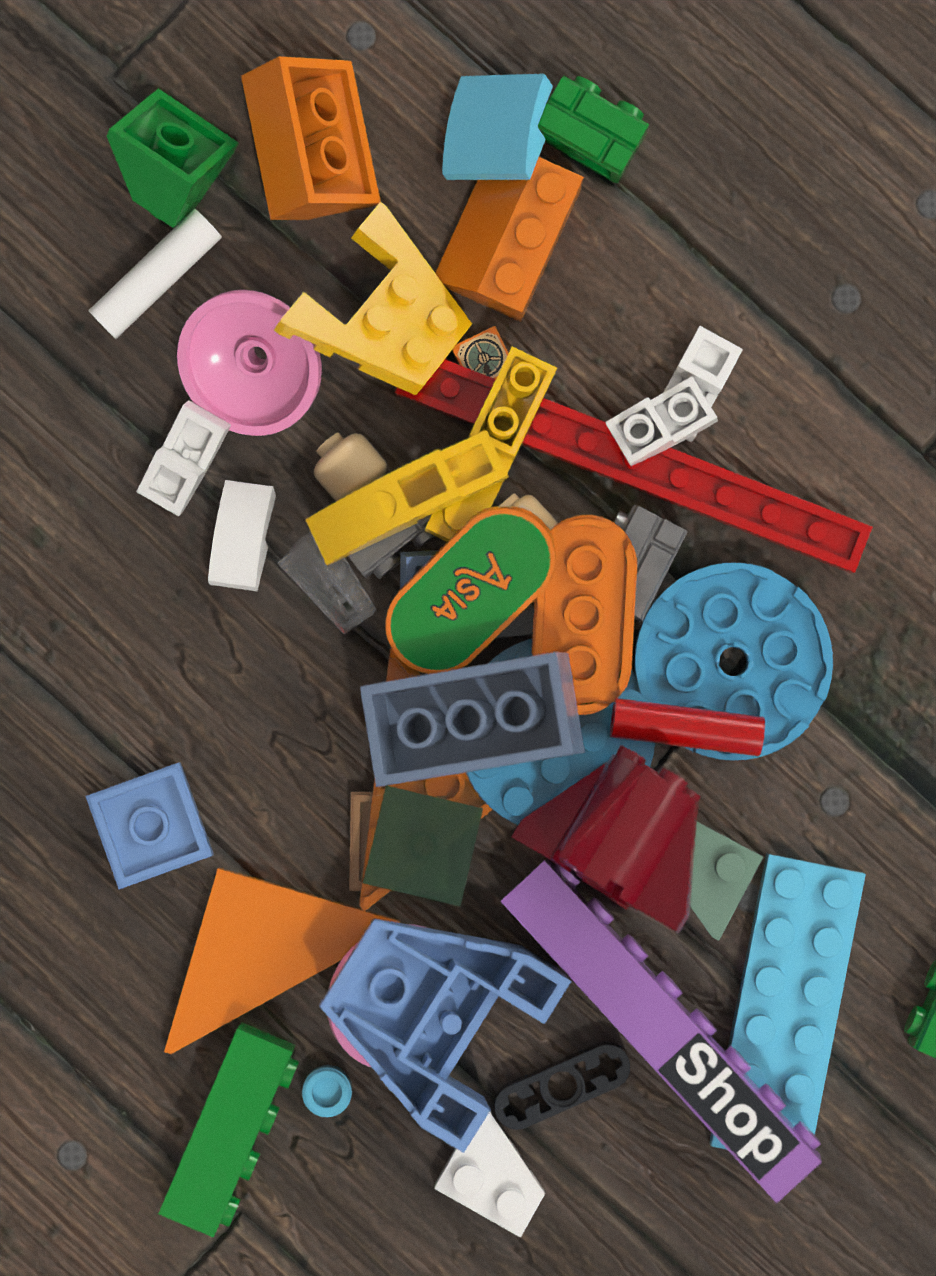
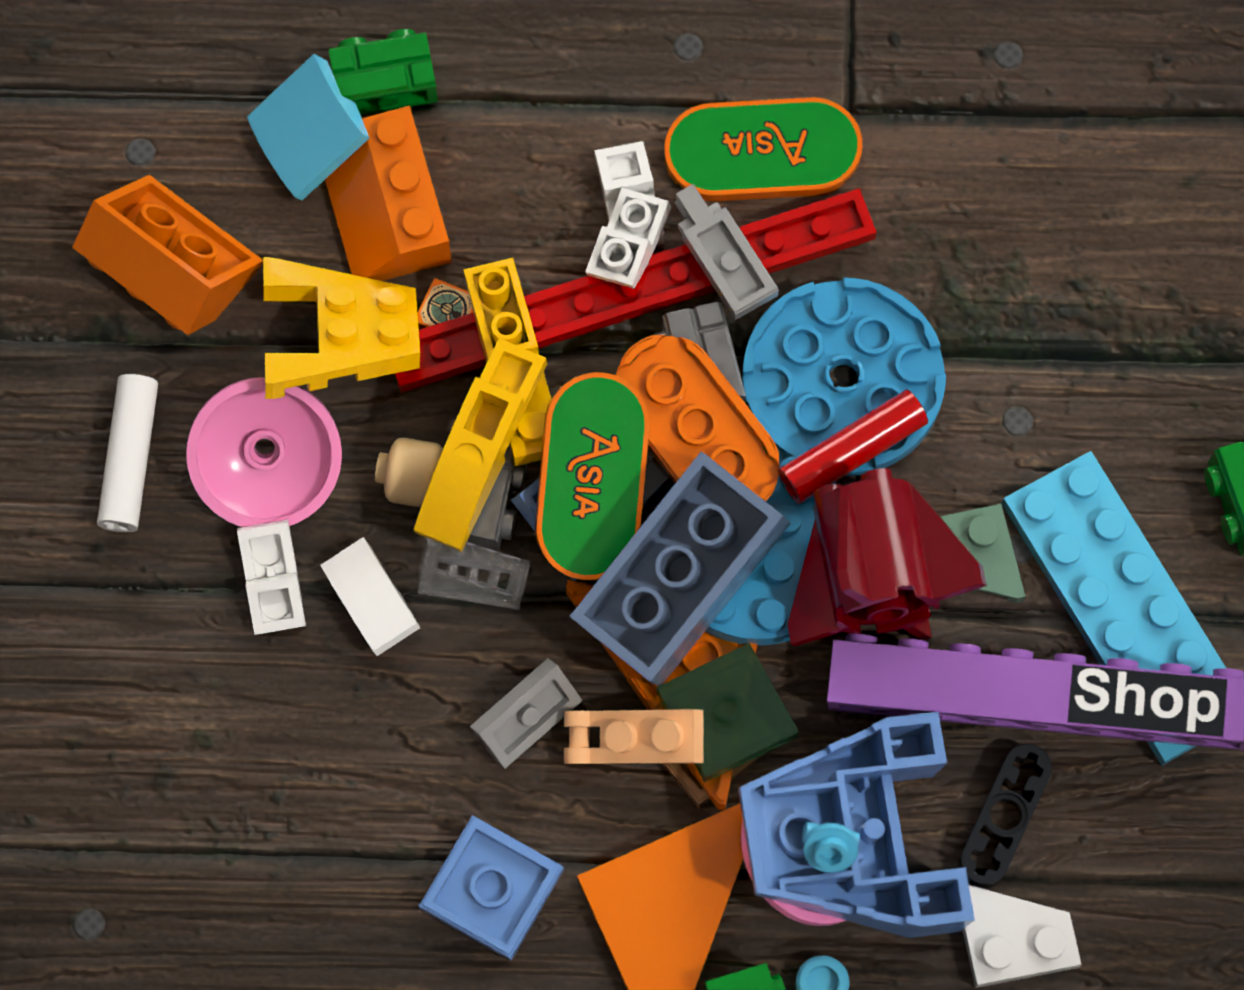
camera: 35 degrees left, 15 degrees down
(168, 156) = (65, 355): green slope -> none
(280, 719) = (526, 713): none -> light grey plate
(340, 807) = (635, 736): none -> light nougat plate
(400, 1019) = (830, 846): none -> medium azure plate
(721, 496) = (724, 254): none -> light grey hinge
(830, 431) = (763, 148): none -> green tile

